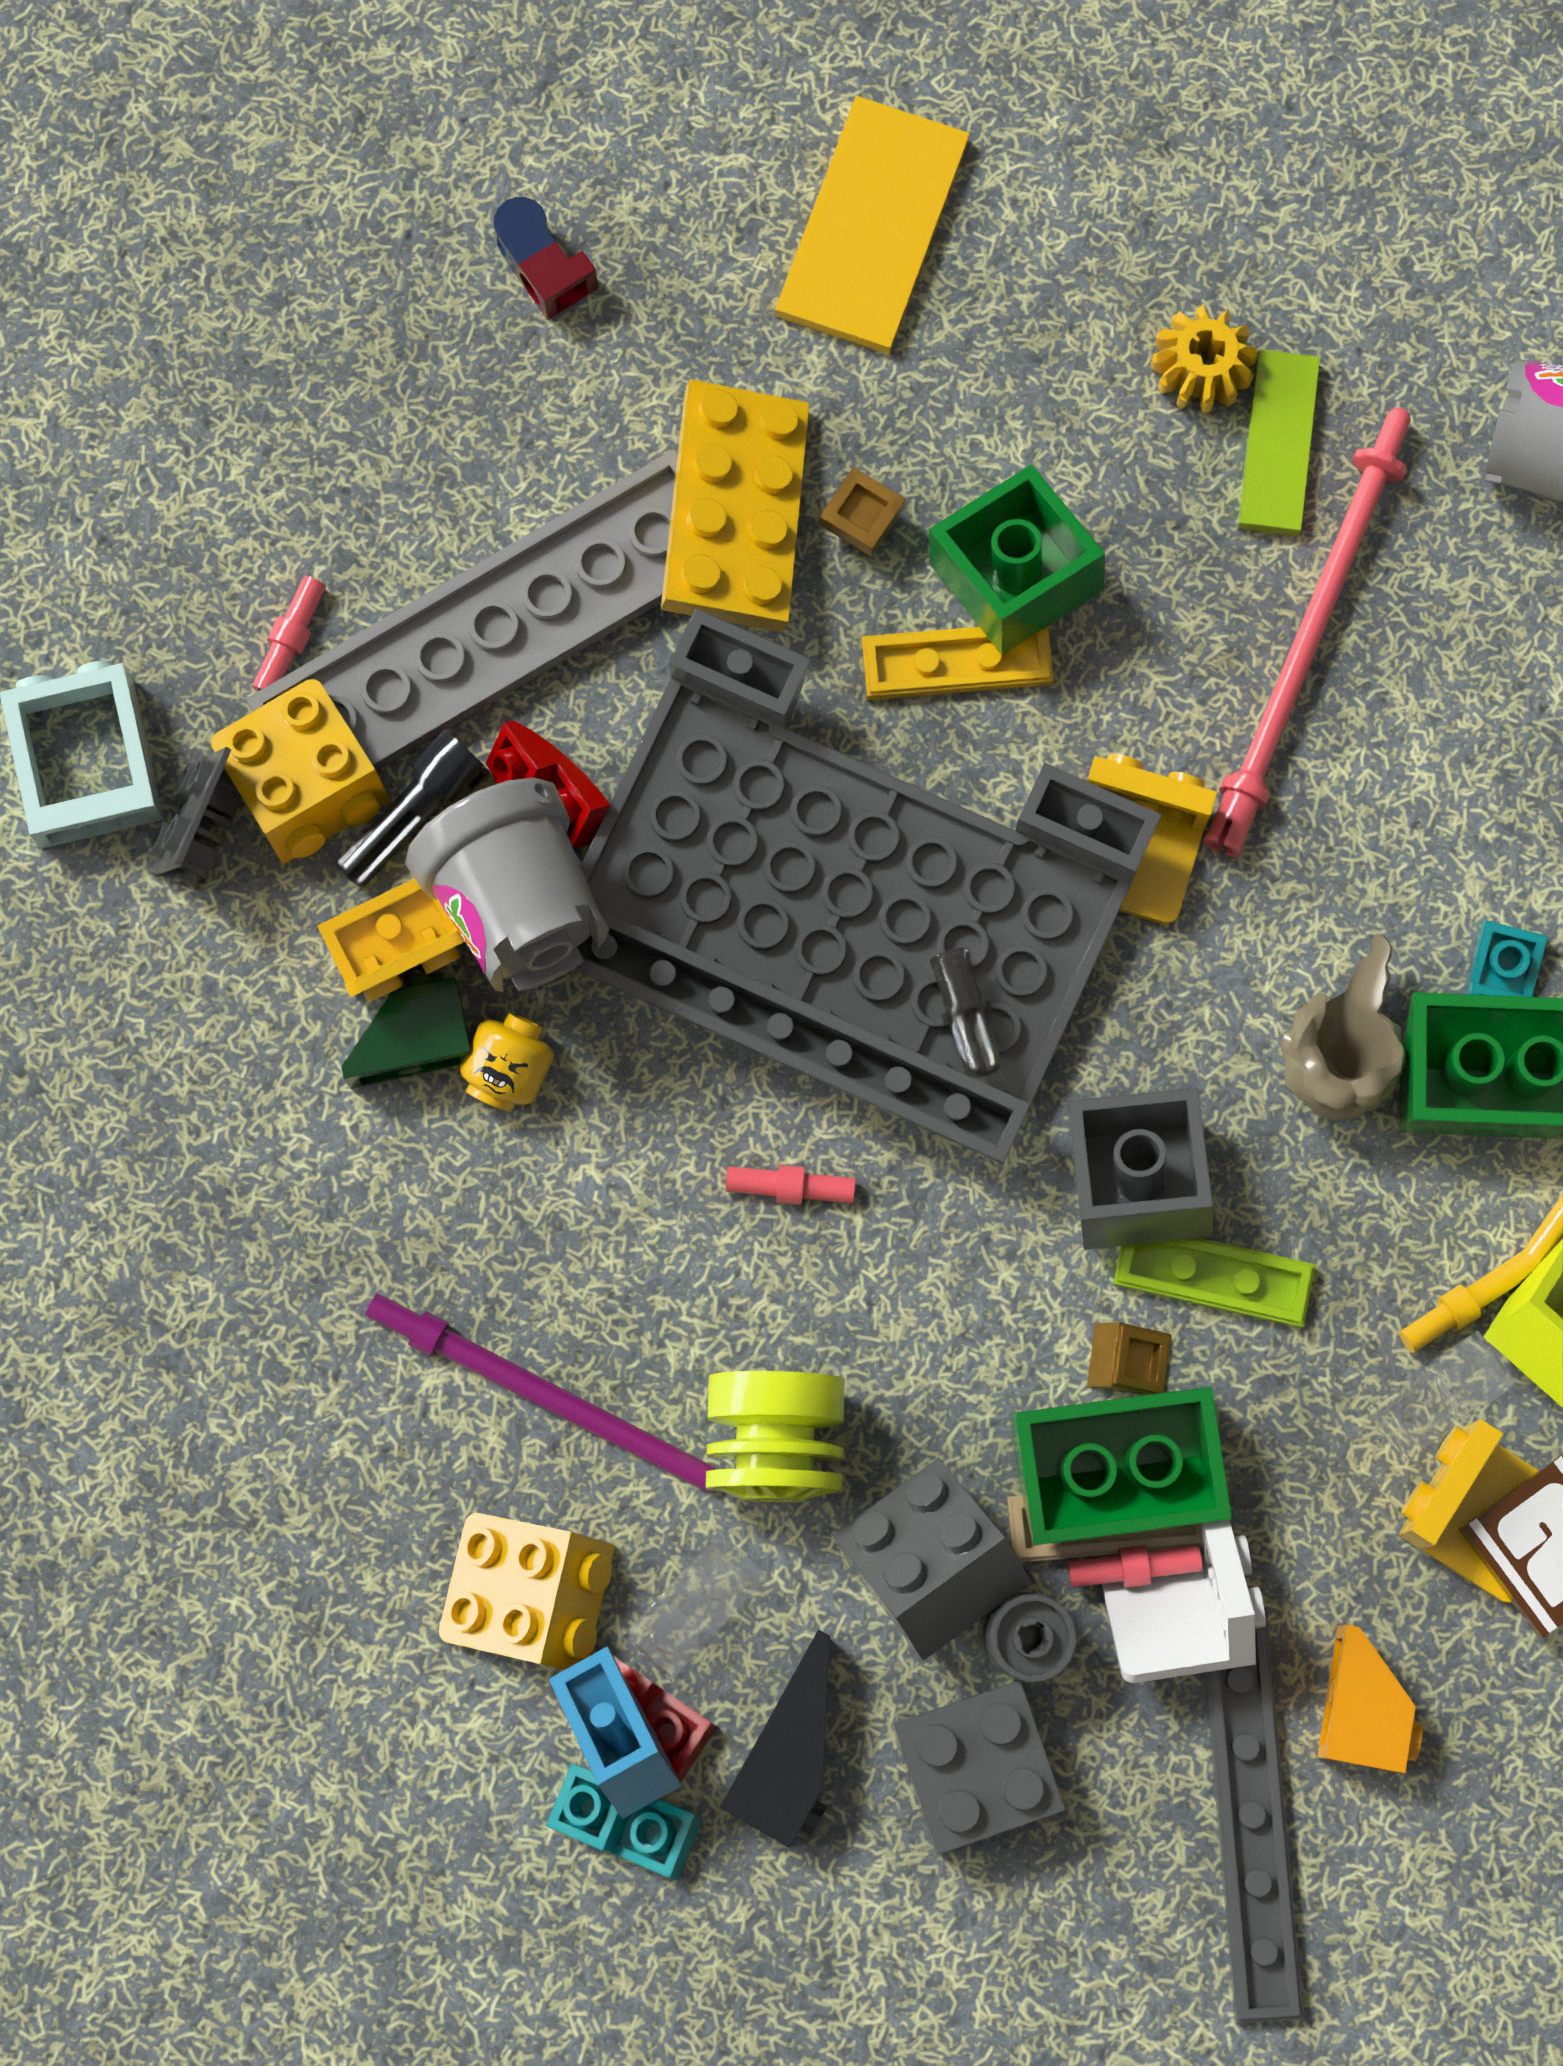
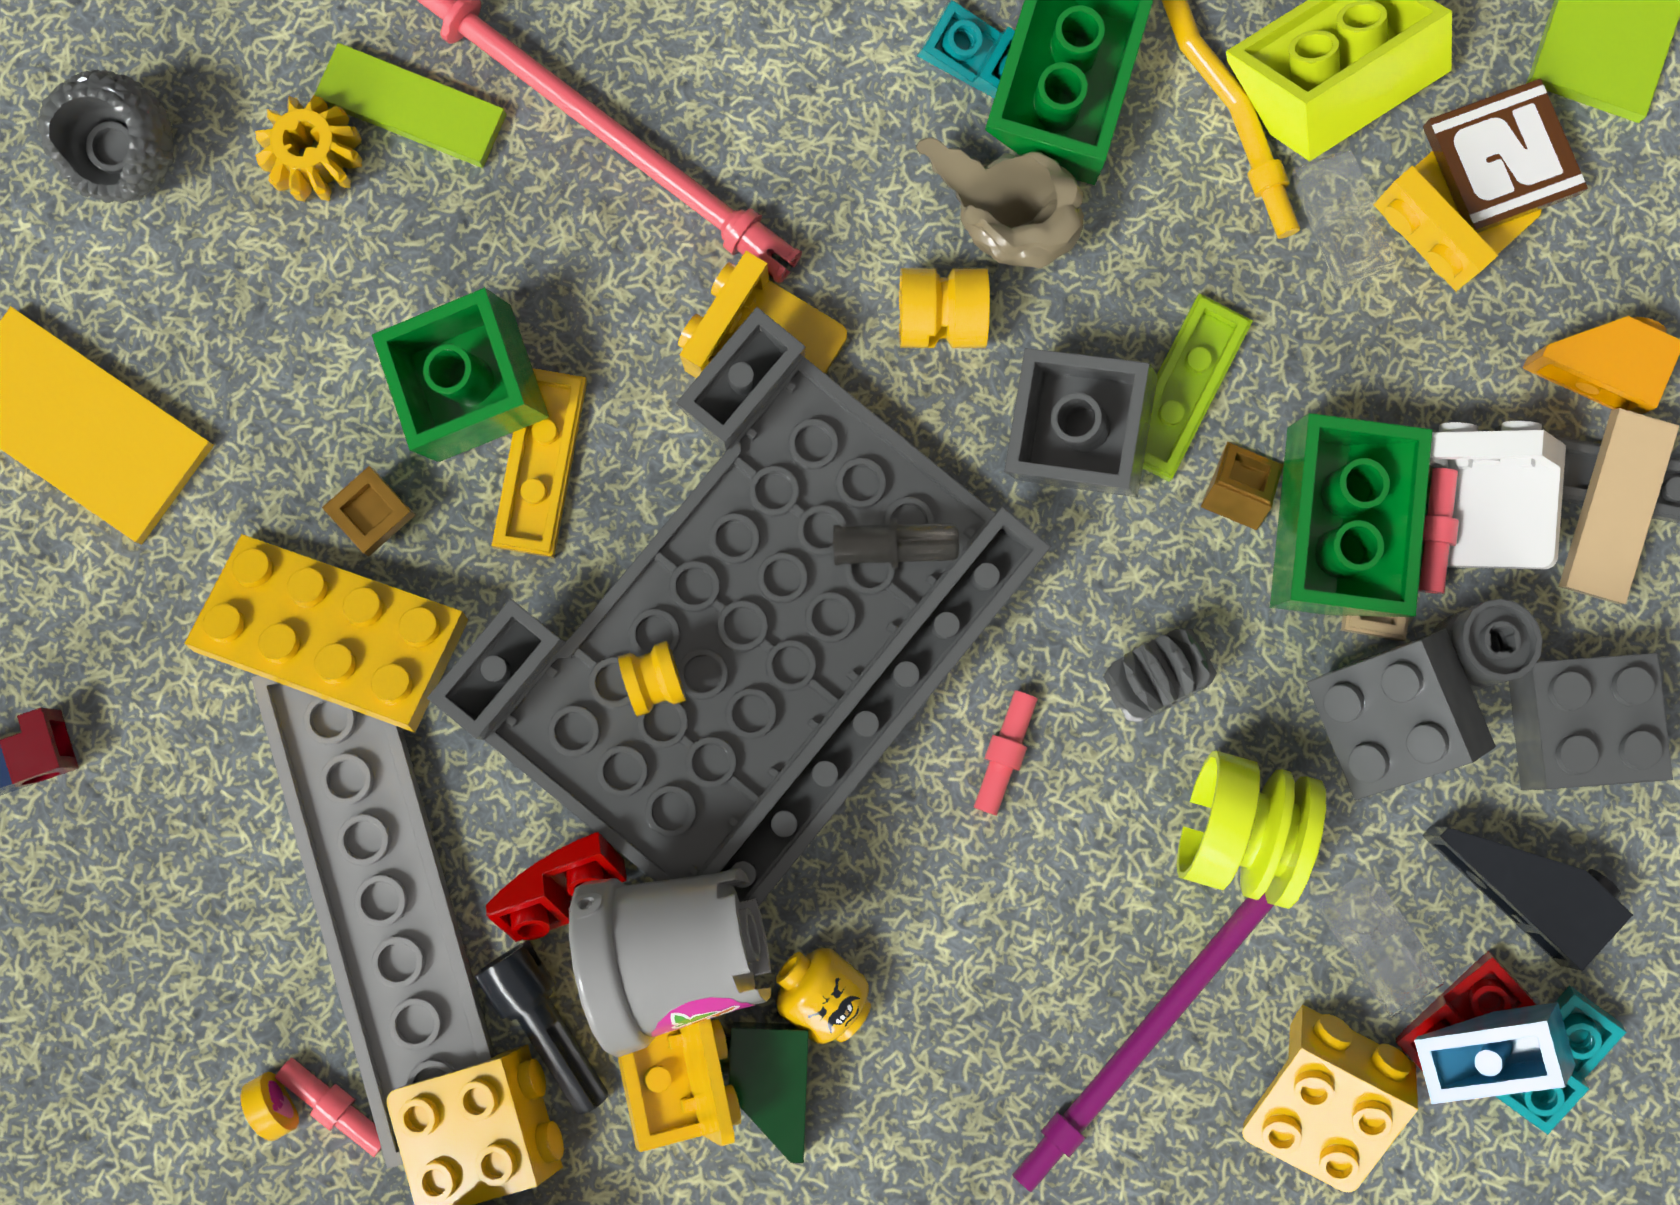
camera: 80 degrees left, 5 degrees up
(276, 577) = (268, 1107): none -> yellow tile
(770, 814) = (651, 678): none -> yellow wheel
(907, 1310) = (1159, 674): none -> dark grey gear
(1157, 172) = (107, 135): none -> dark grey hair
(1213, 1749) = (1618, 506): none -> tan tile
(1221, 1005) = (944, 307): none -> yellow wheel

